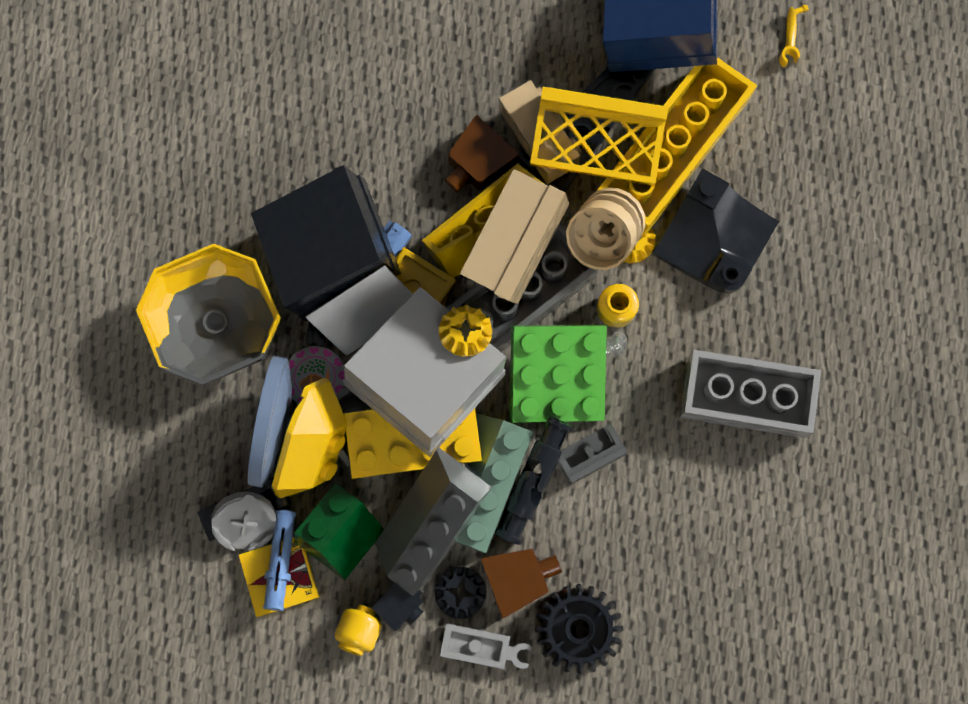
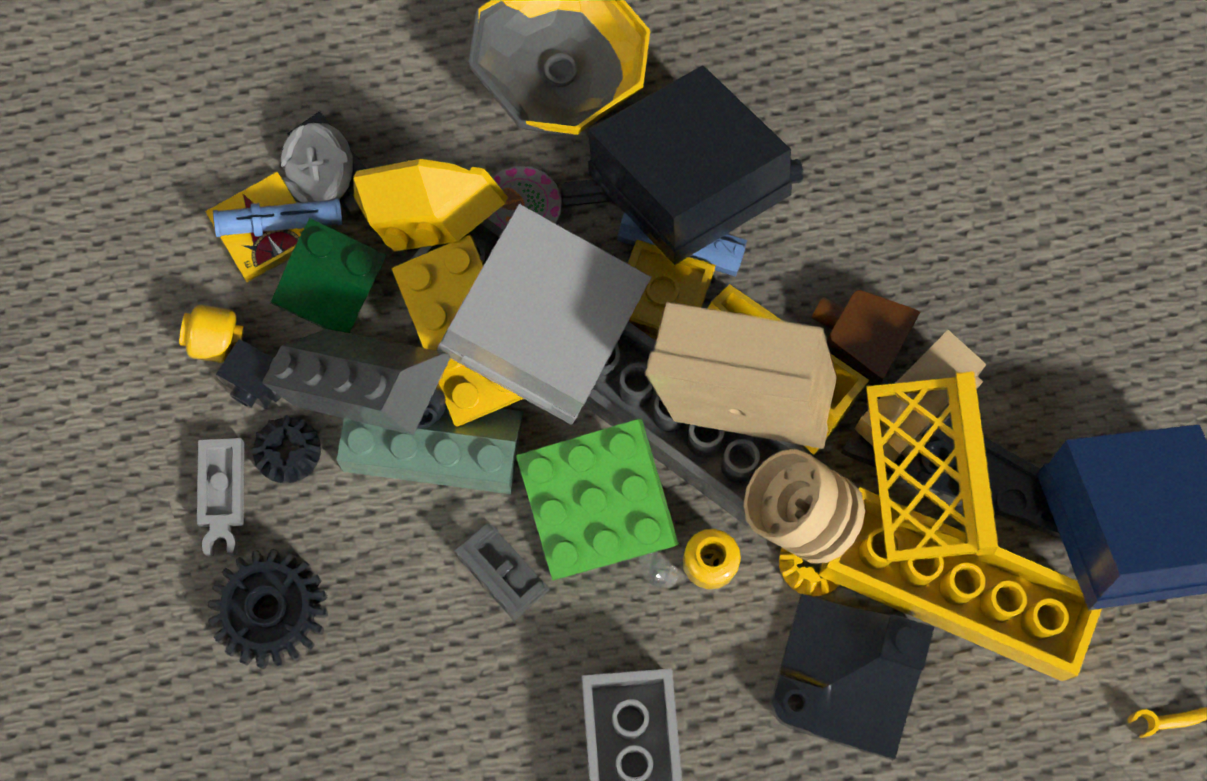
camera: 75 degrees right, 5 degrees down
(271, 422) = (442, 137): sand blue dish -> none
(360, 310) = (617, 225): white piece -> none
(453, 339) = (591, 357): yellow gear -> none
(518, 578) = (316, 515): reddish brown torso -> none
(531, 484) = (442, 501): black piece -> none

